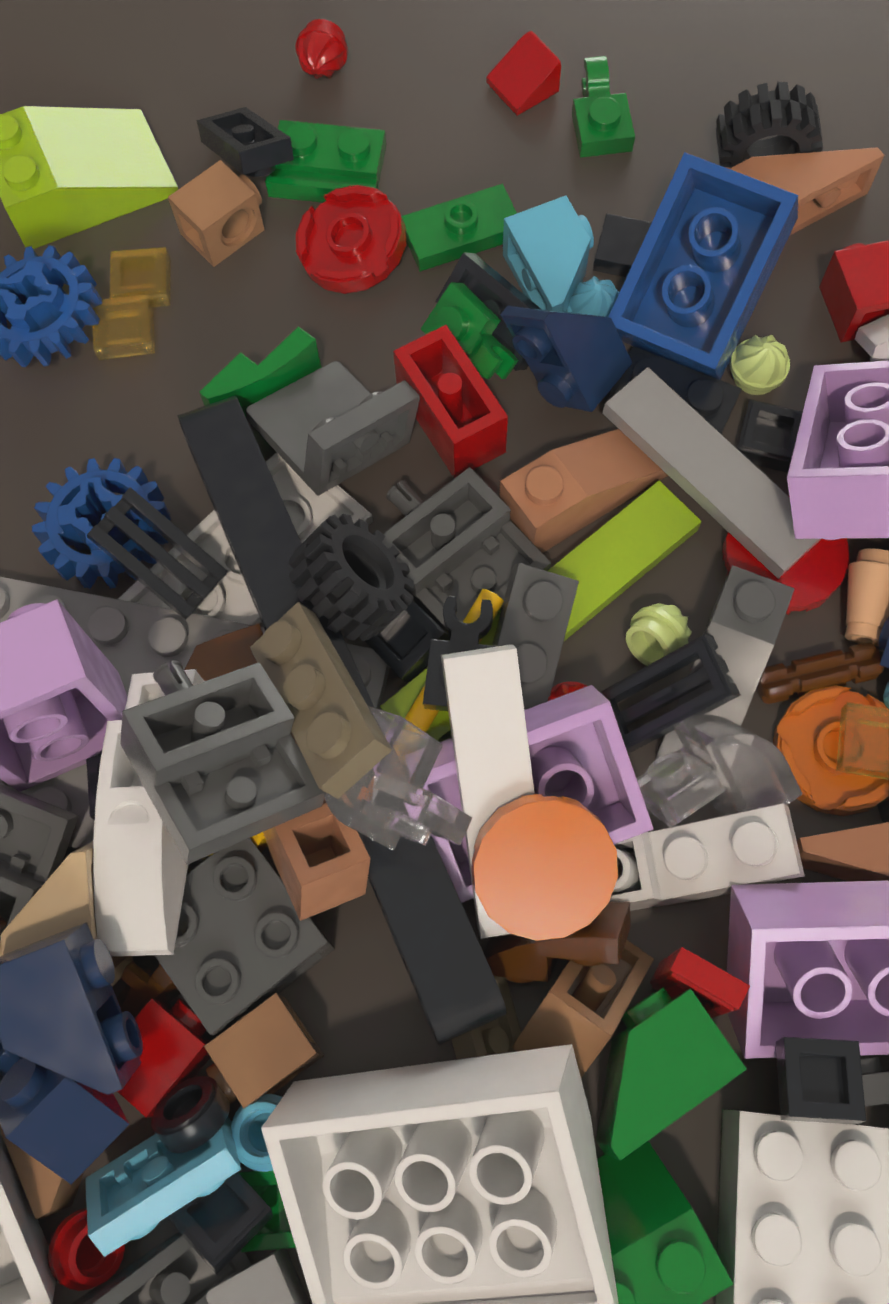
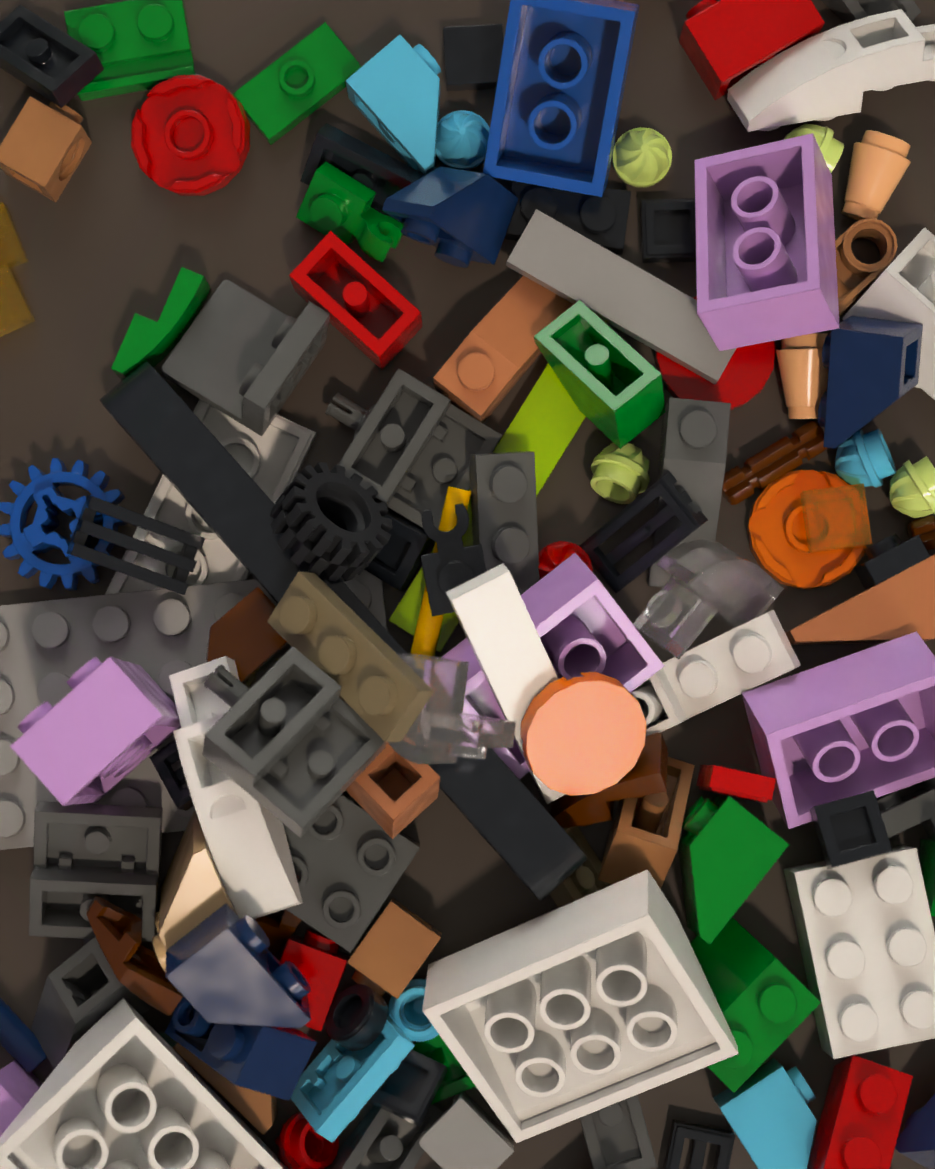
camera: 20 degrees left, 15 degrees up
(671, 529) = (602, 373): none -> green slope

